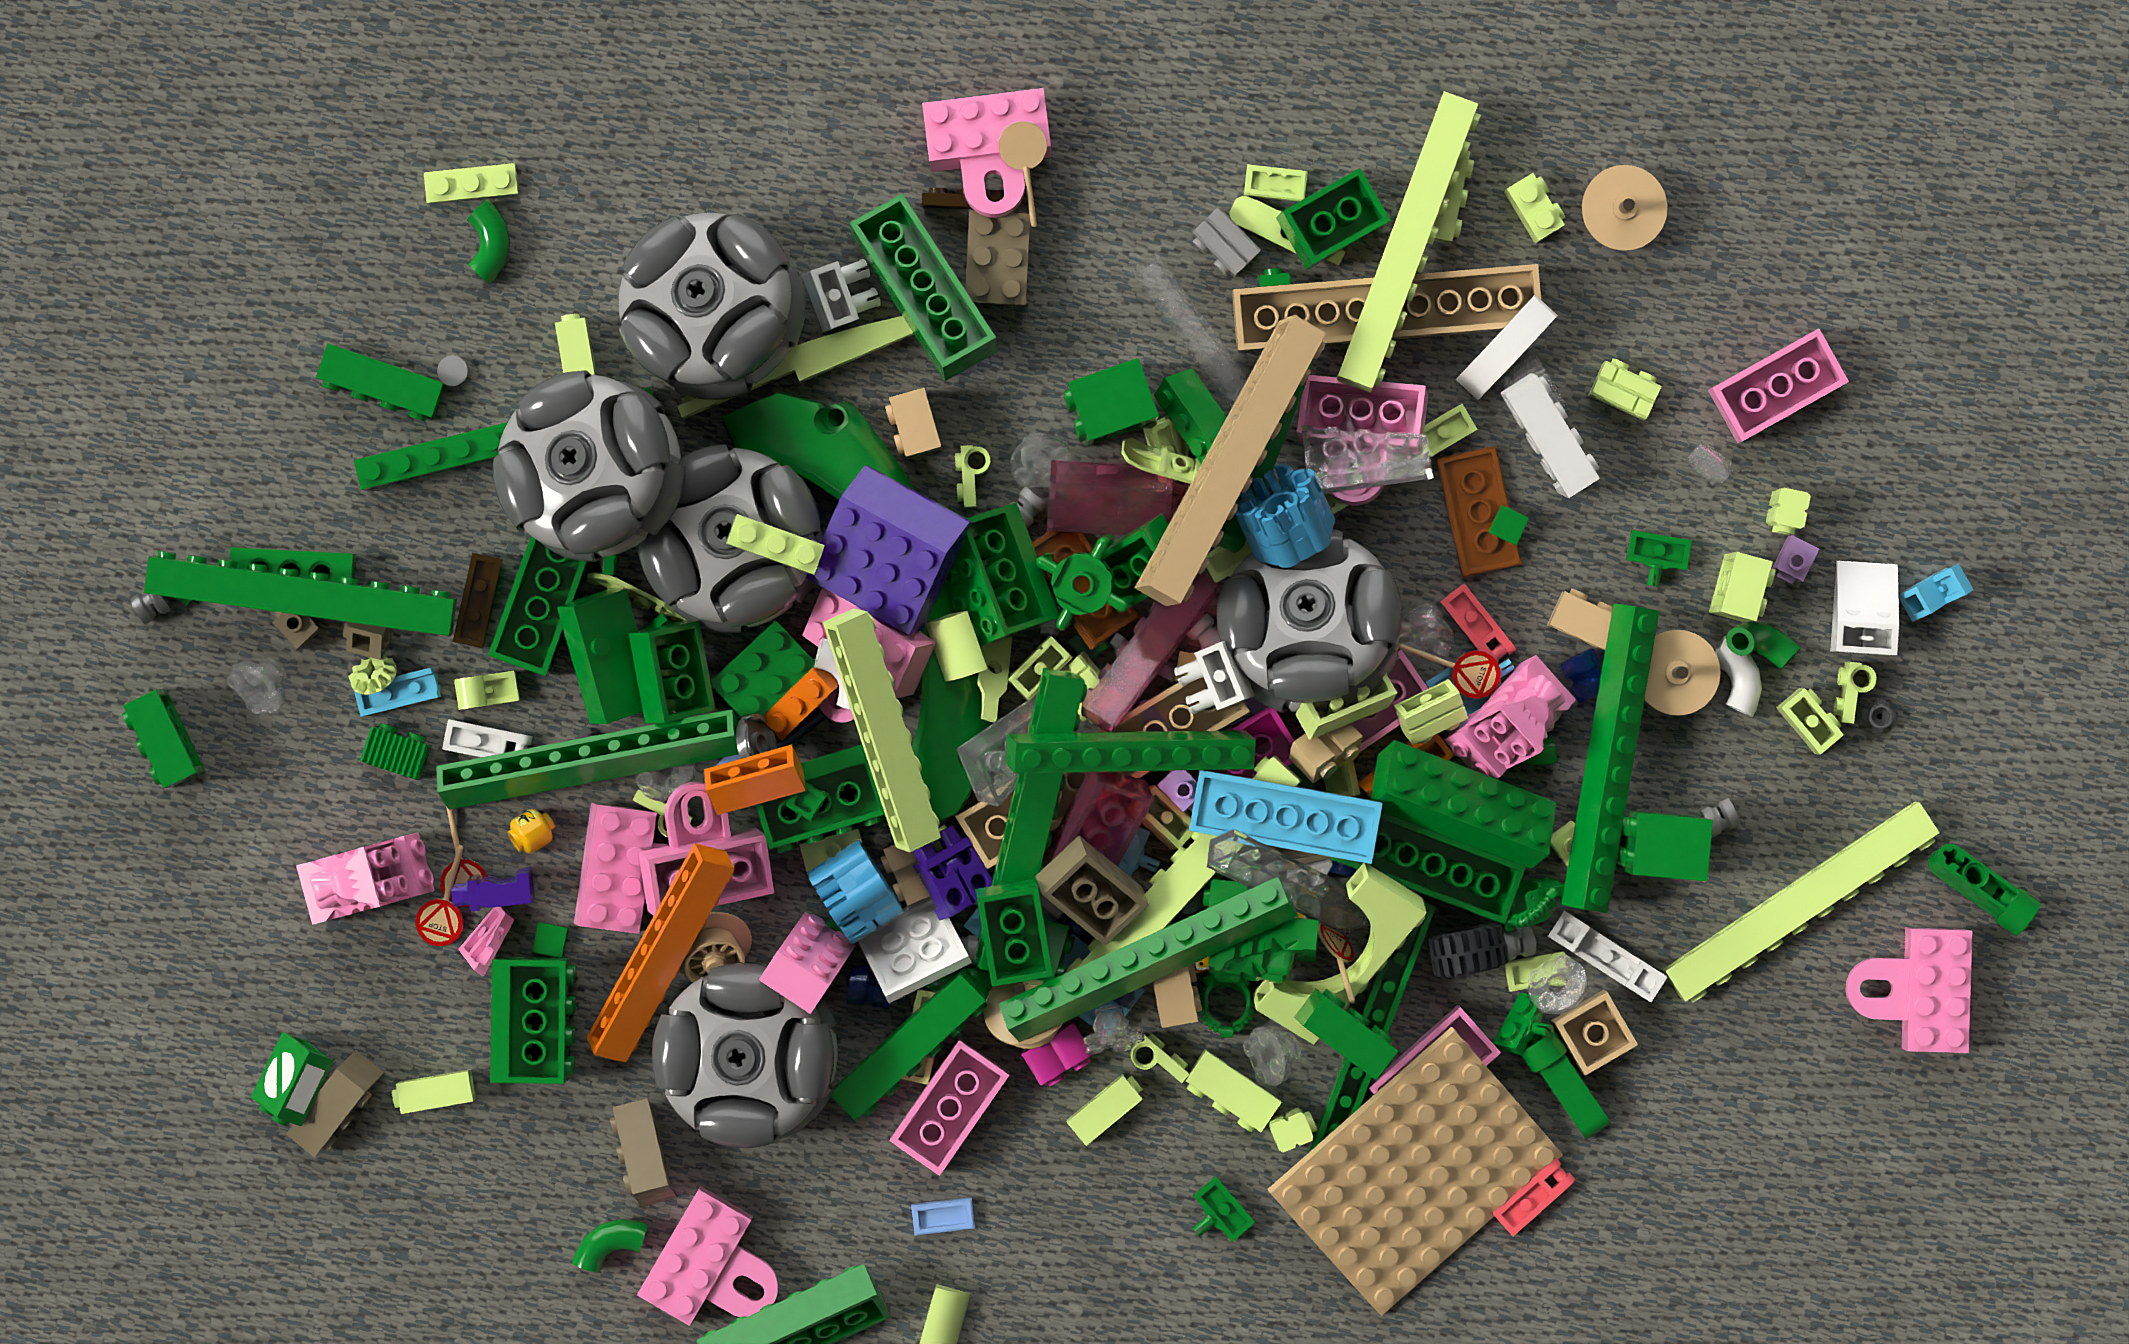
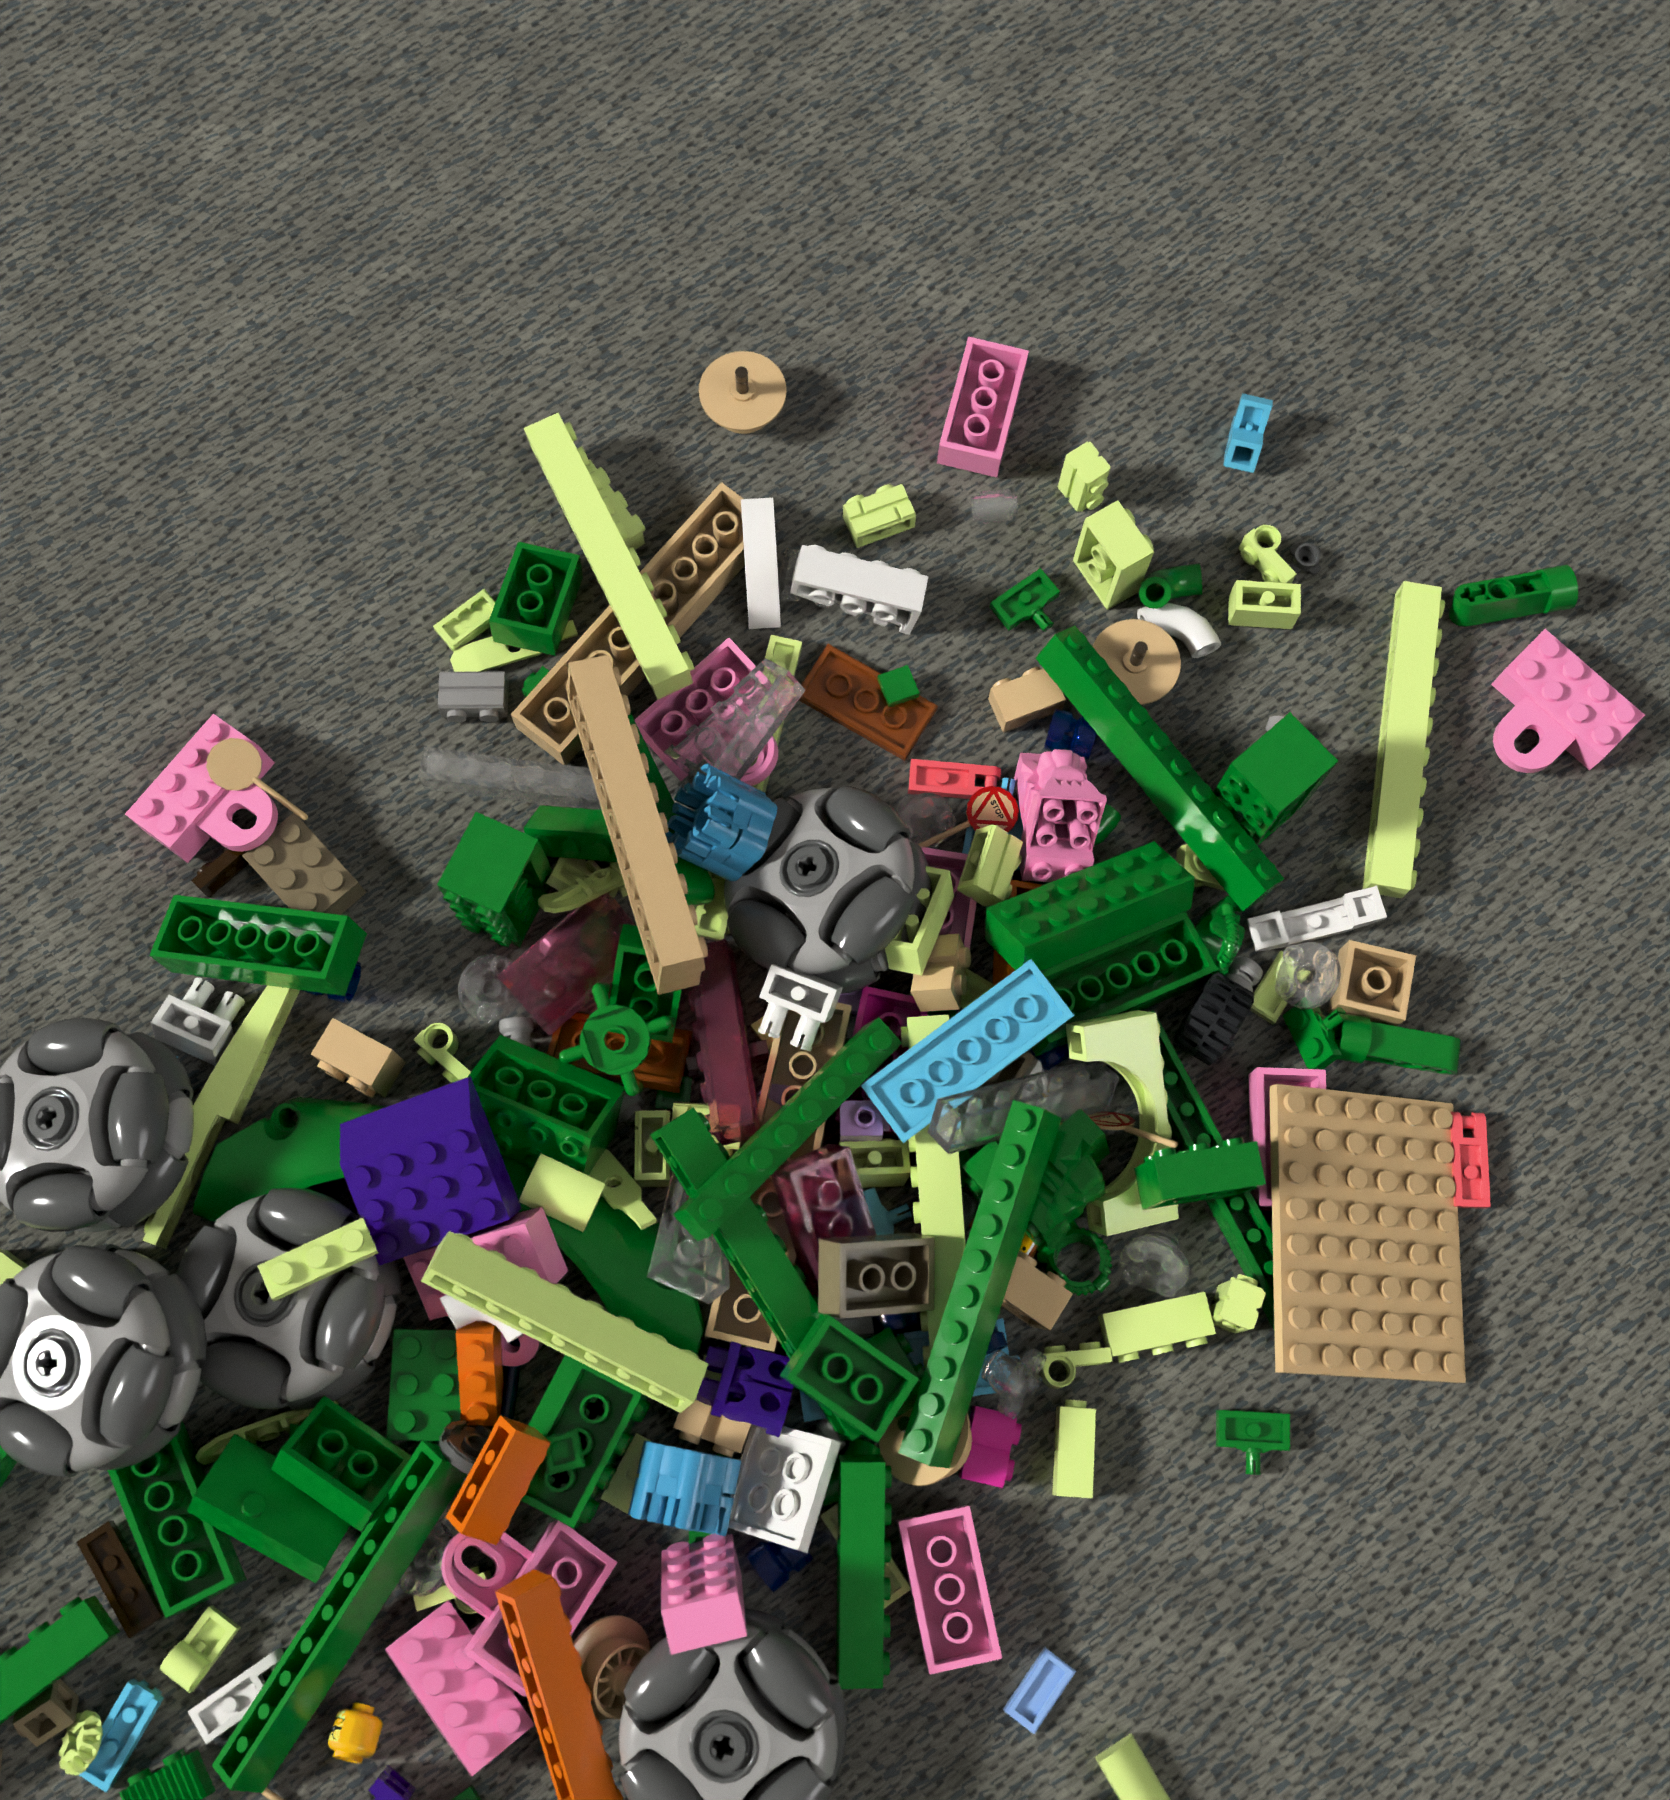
camera: 50 degrees left, 15 degrees down
(610, 565) = (205, 1424): green tile -> none
(1204, 632) = (751, 990): light grey wheel -> none
(1534, 207) = (678, 456): yellowish green brick -> none
(1794, 560) = (1130, 498): lavender brick -> none
(1865, 608) = (1215, 495): white slope -> none

